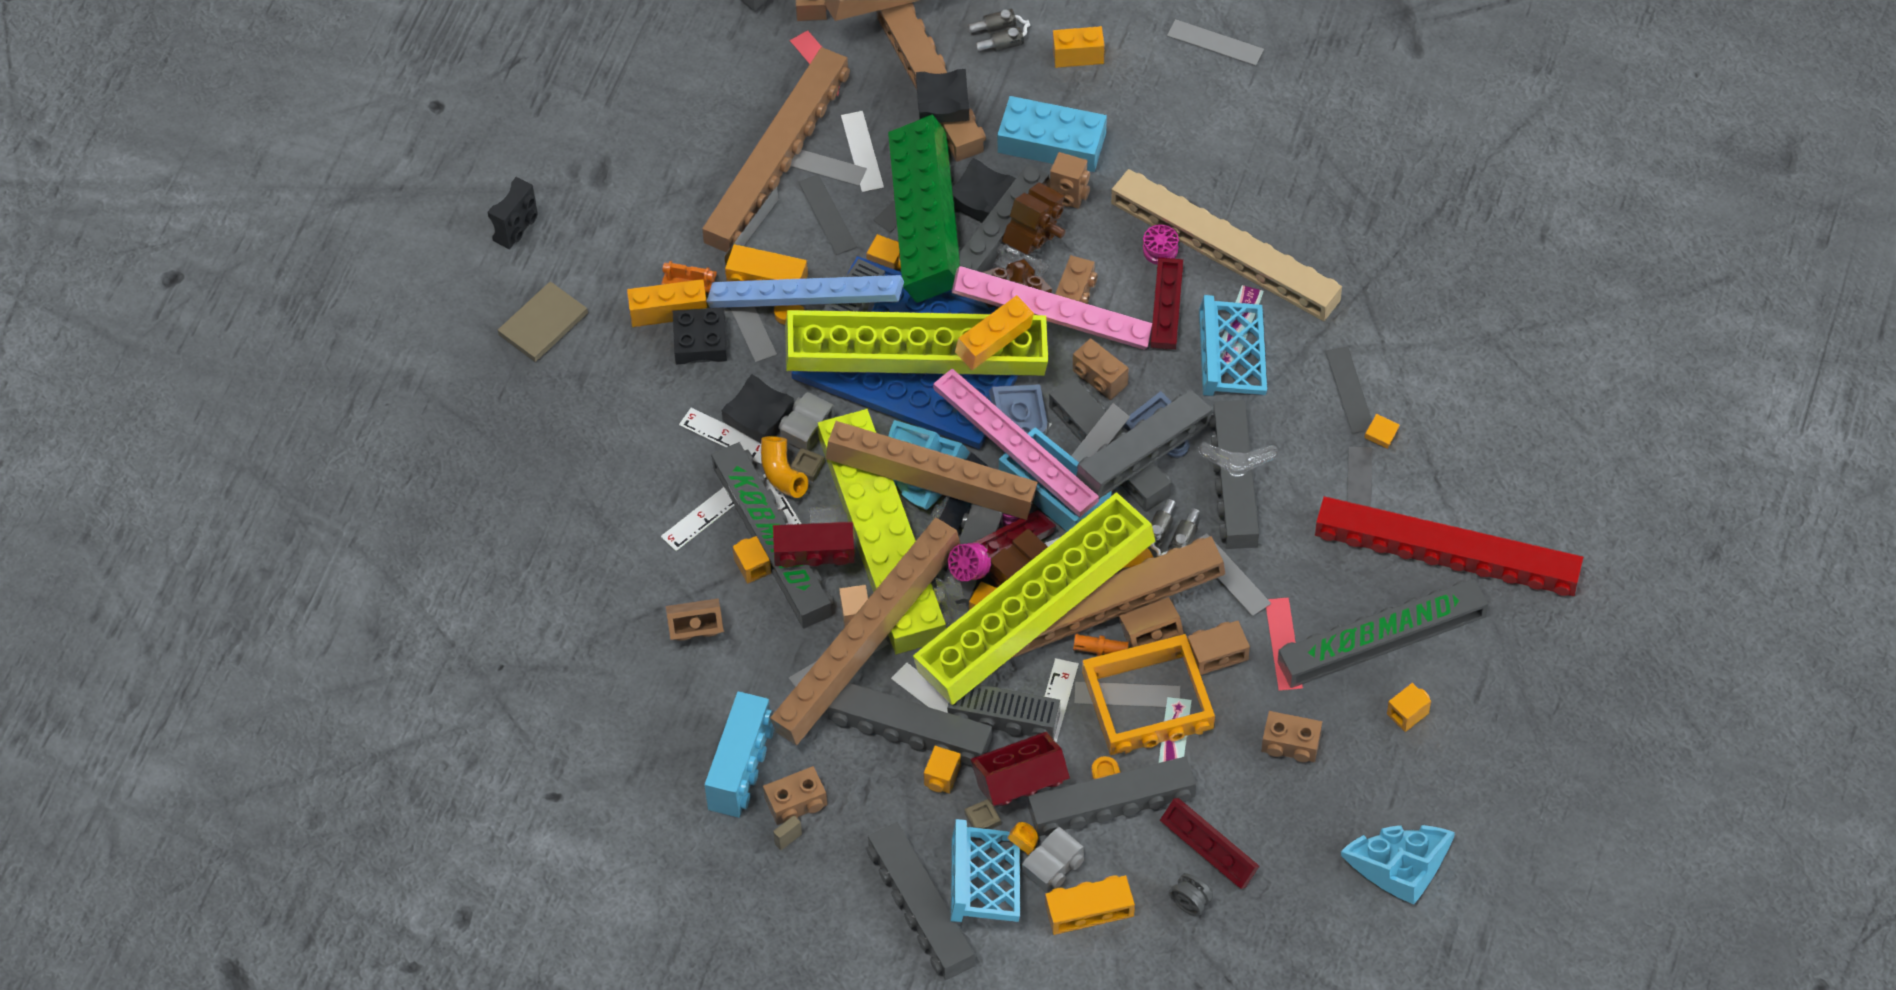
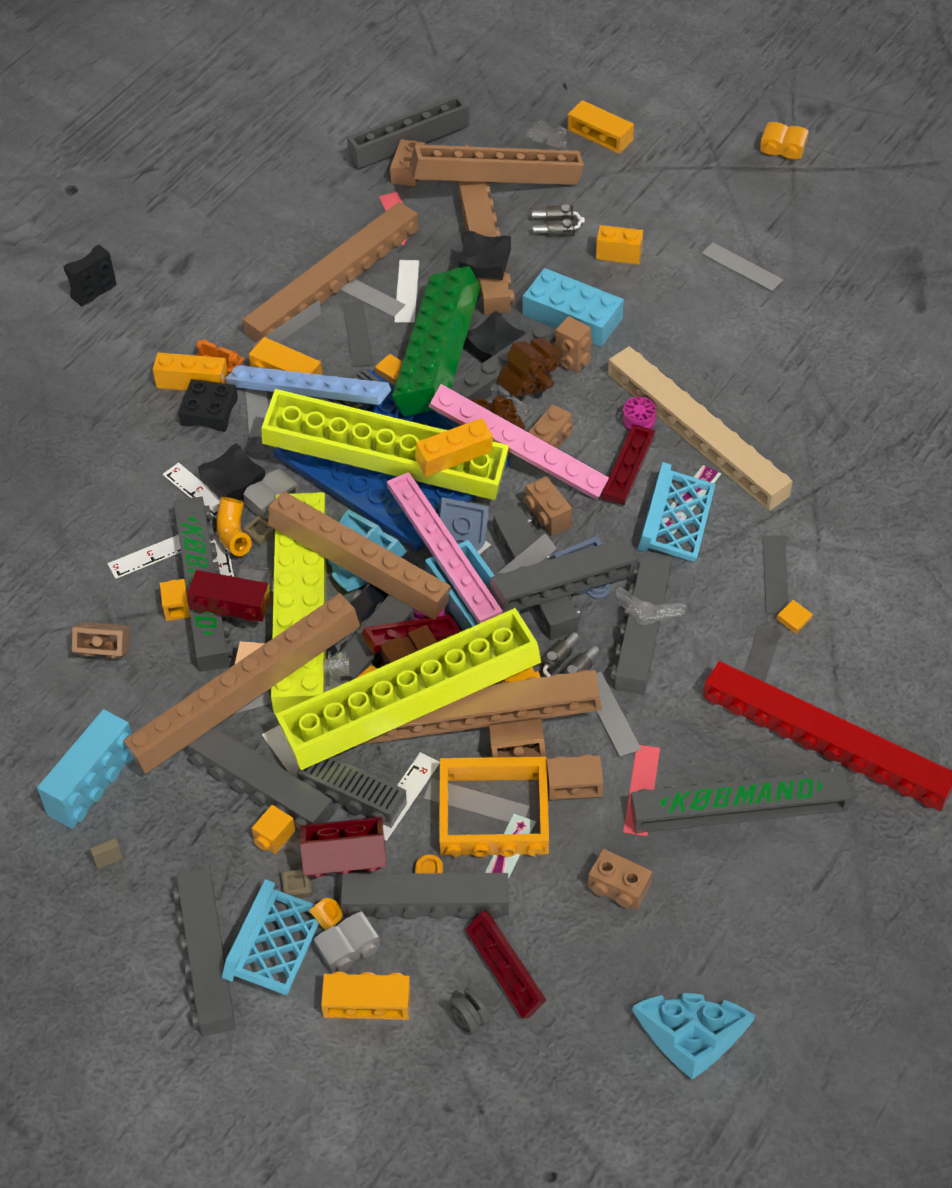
camera: 15 degrees right, 5 degrees down
(542, 321) = (82, 367): dark tan tile -> none
(795, 795) = (128, 820): medium nougat brick -> none
(965, 569) = (361, 643): dark pink wheel -> none
(1098, 645) = (461, 748): orange pin -> none
(1409, 707) = (745, 878): light orange brick -> none

